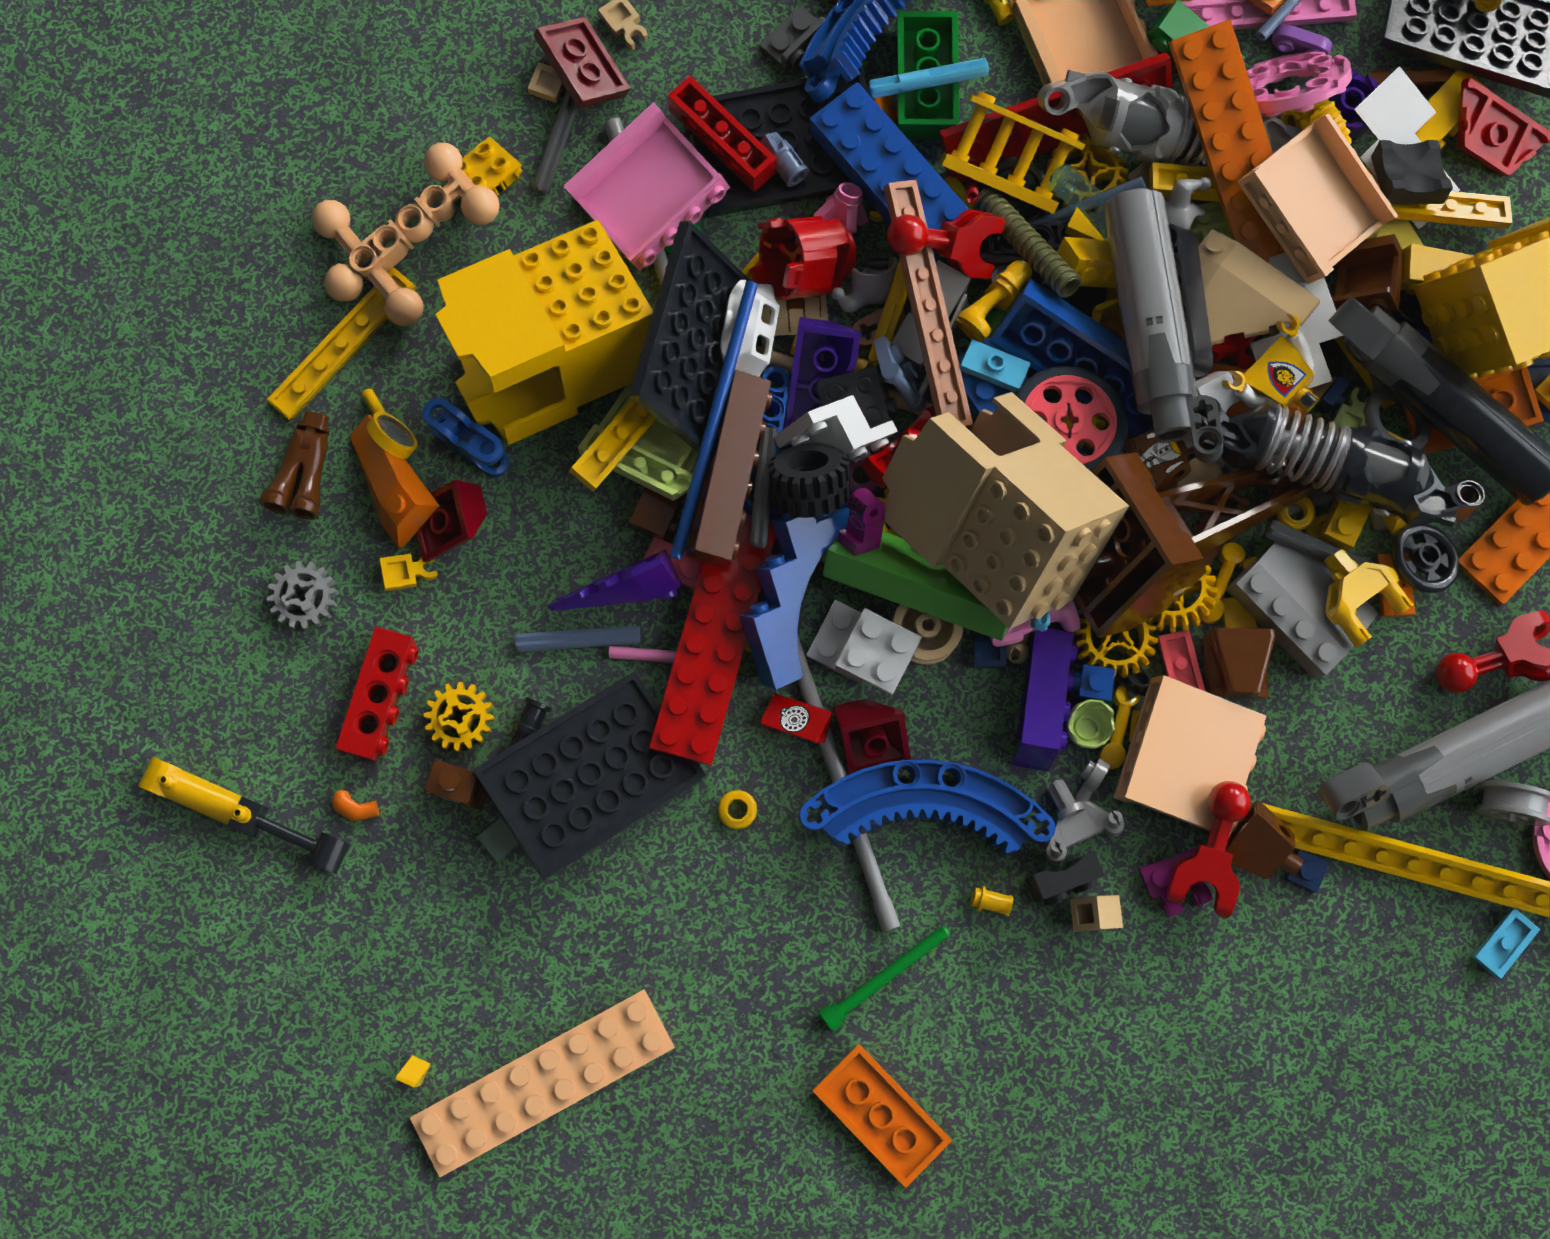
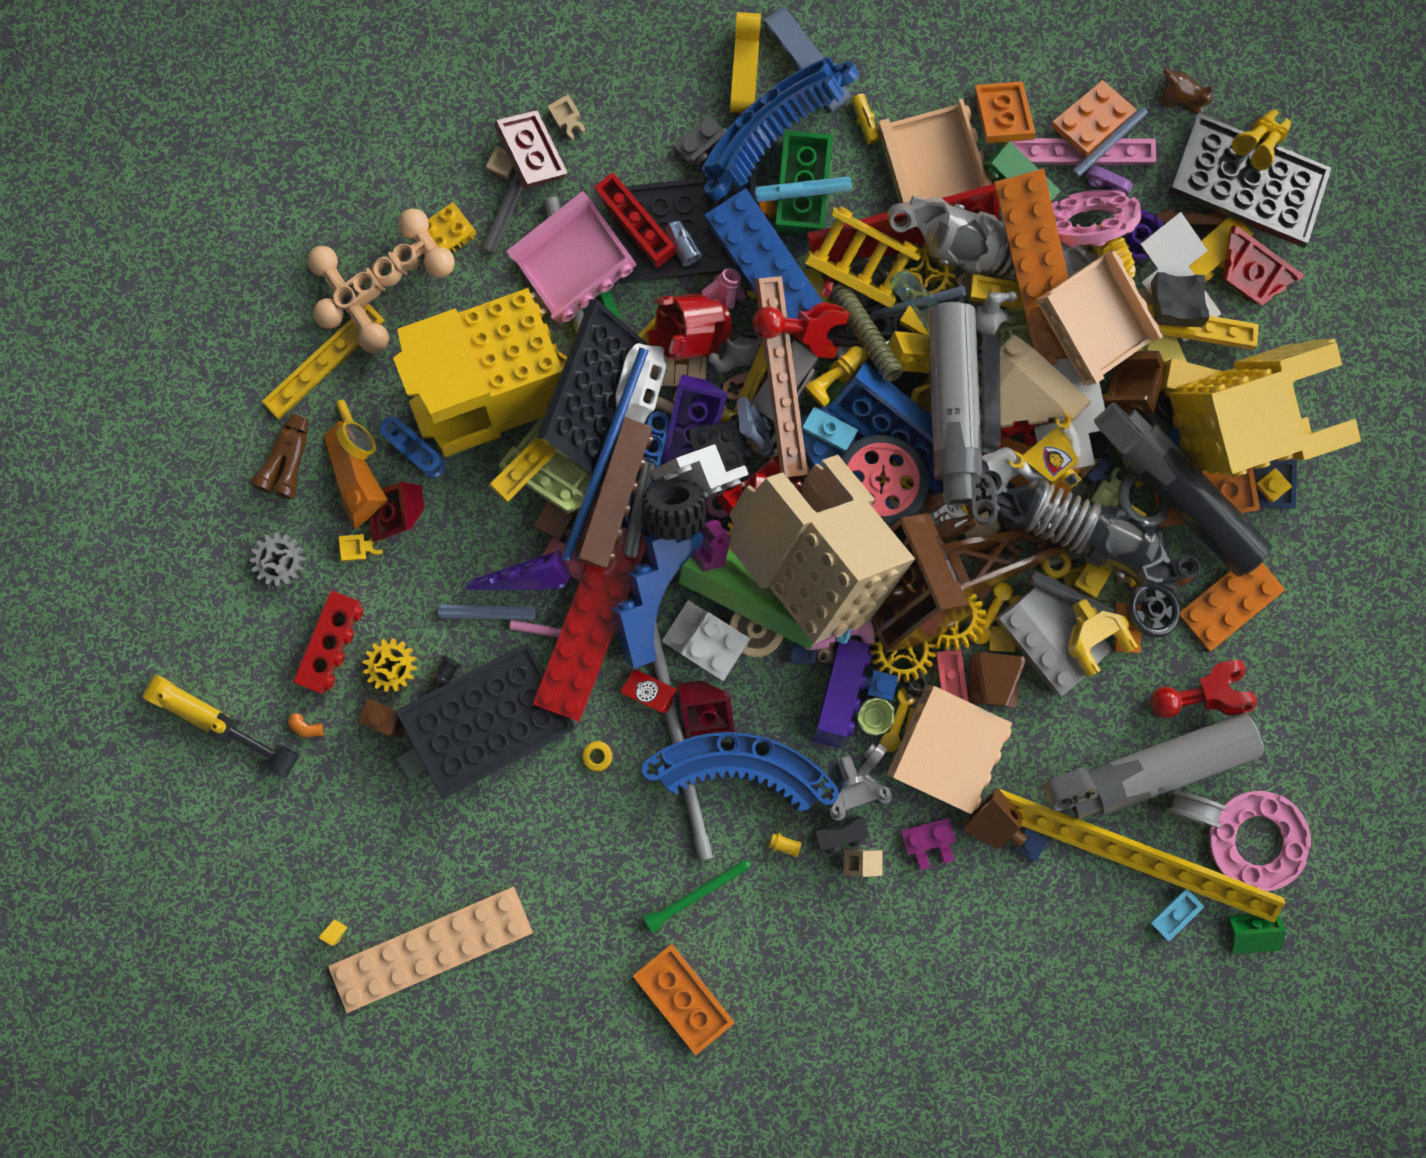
camera: 10 degrees right, 5 degrees up
(1211, 862) = (954, 832): red piece -> none

